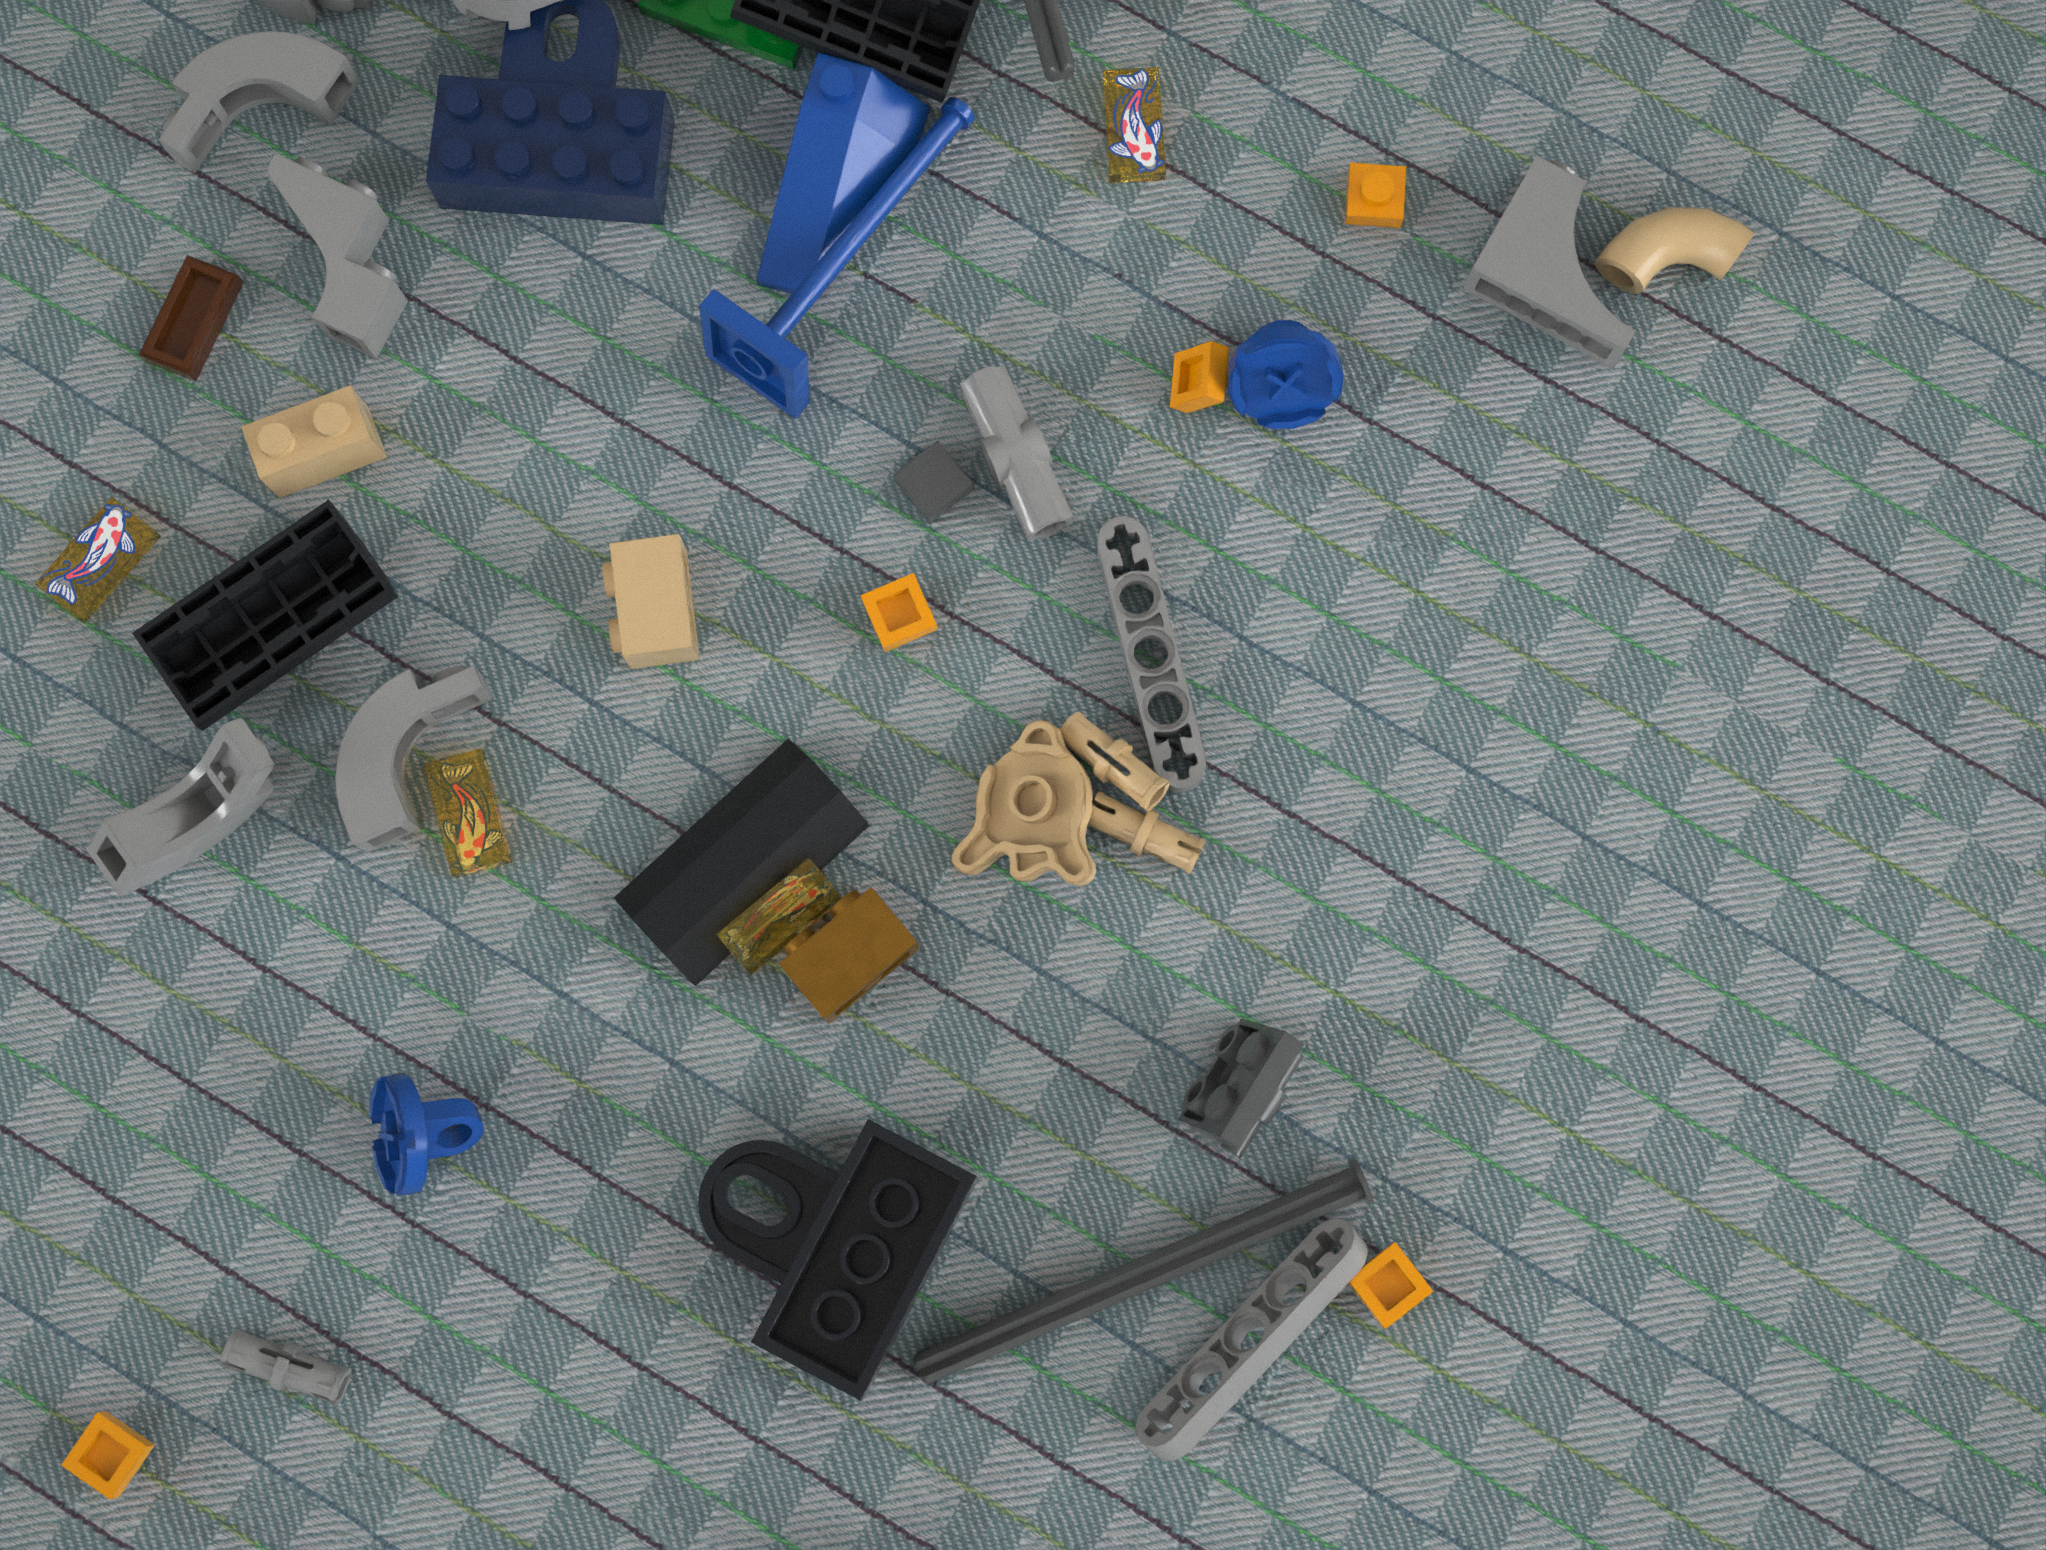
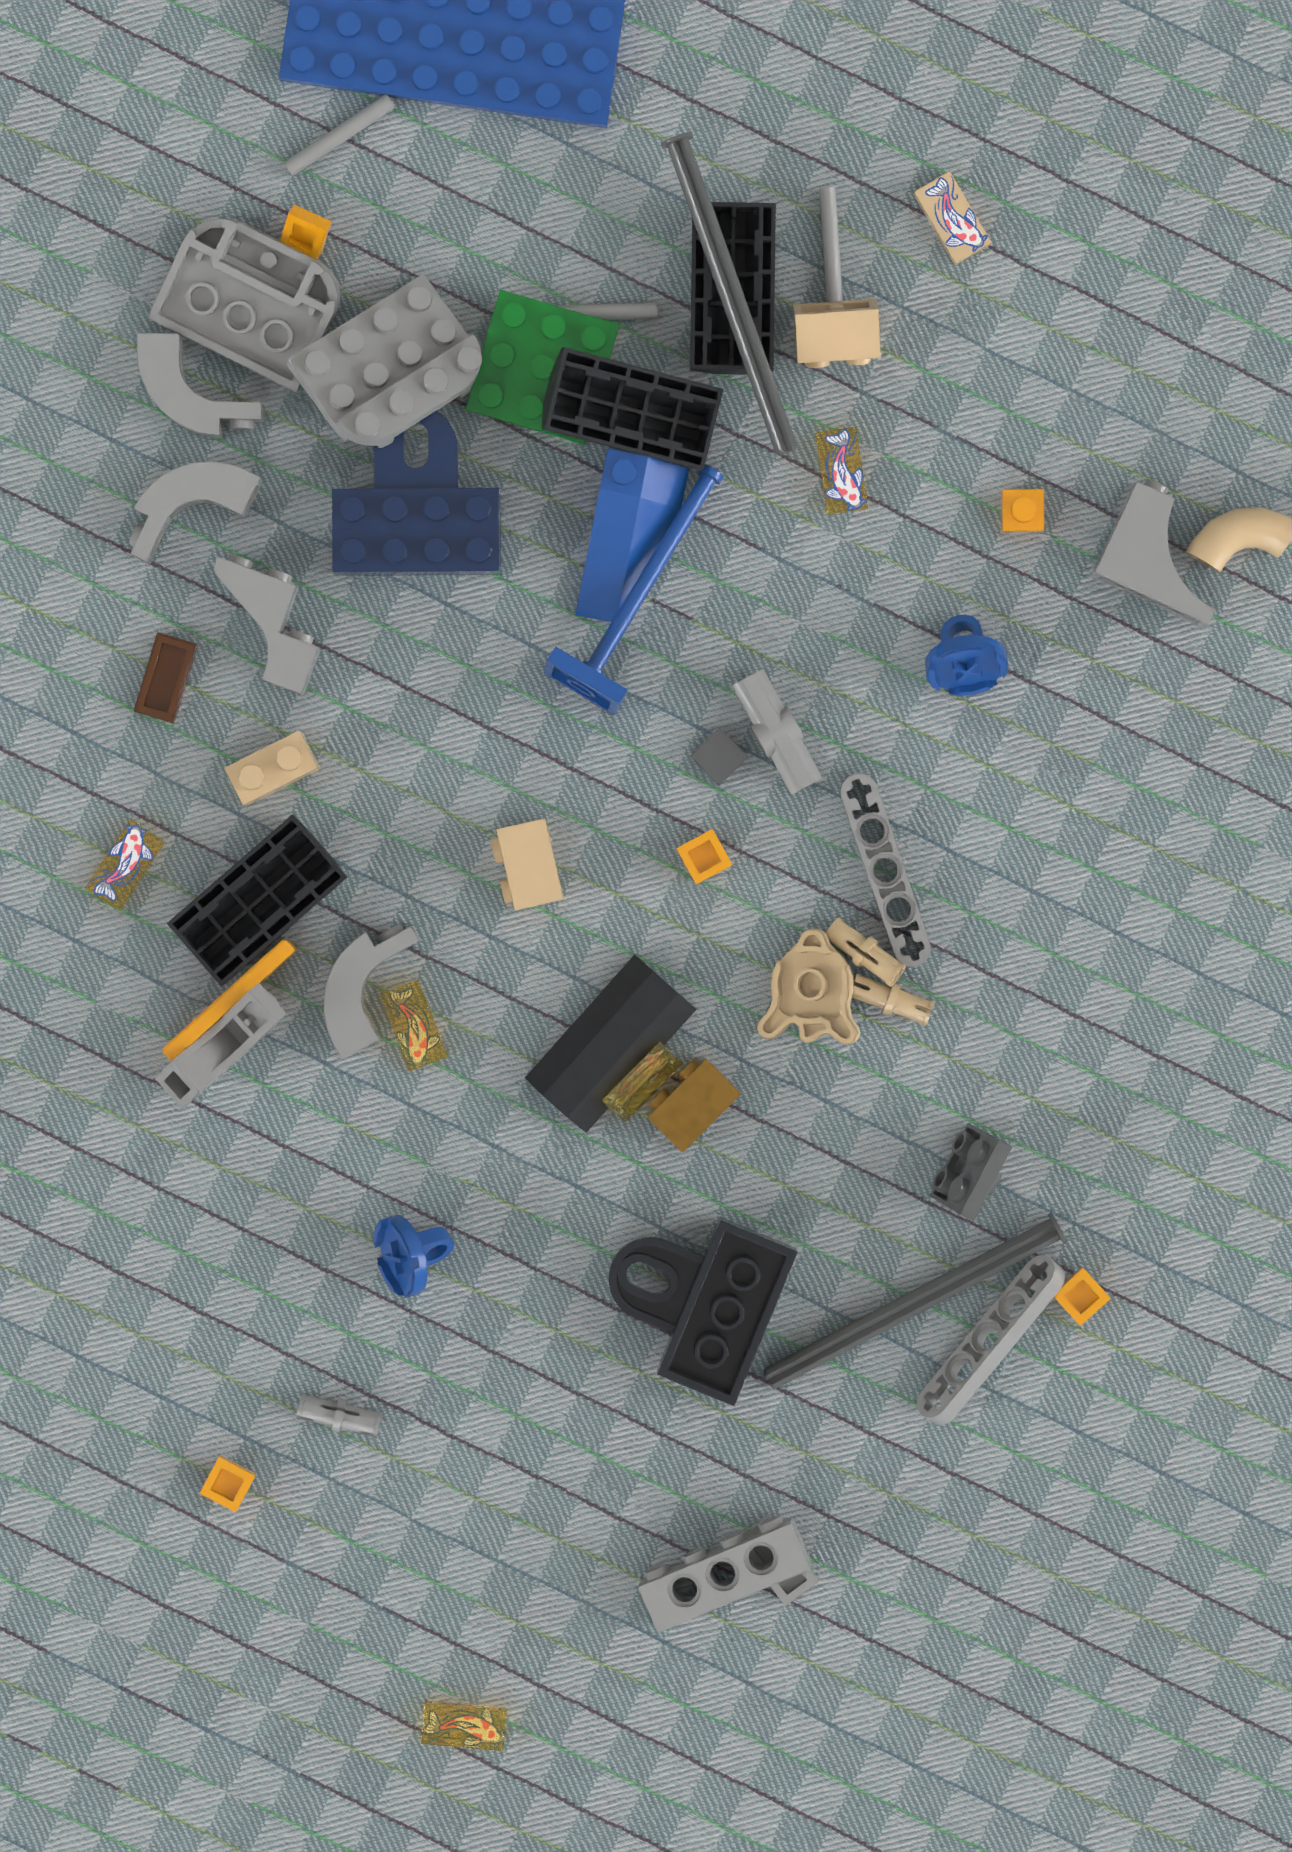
camera: 10 degrees left, 10 degrees up
(263, 716) = (229, 998): none -> light orange tile
(1199, 377) = (904, 665): light orange plate -> none

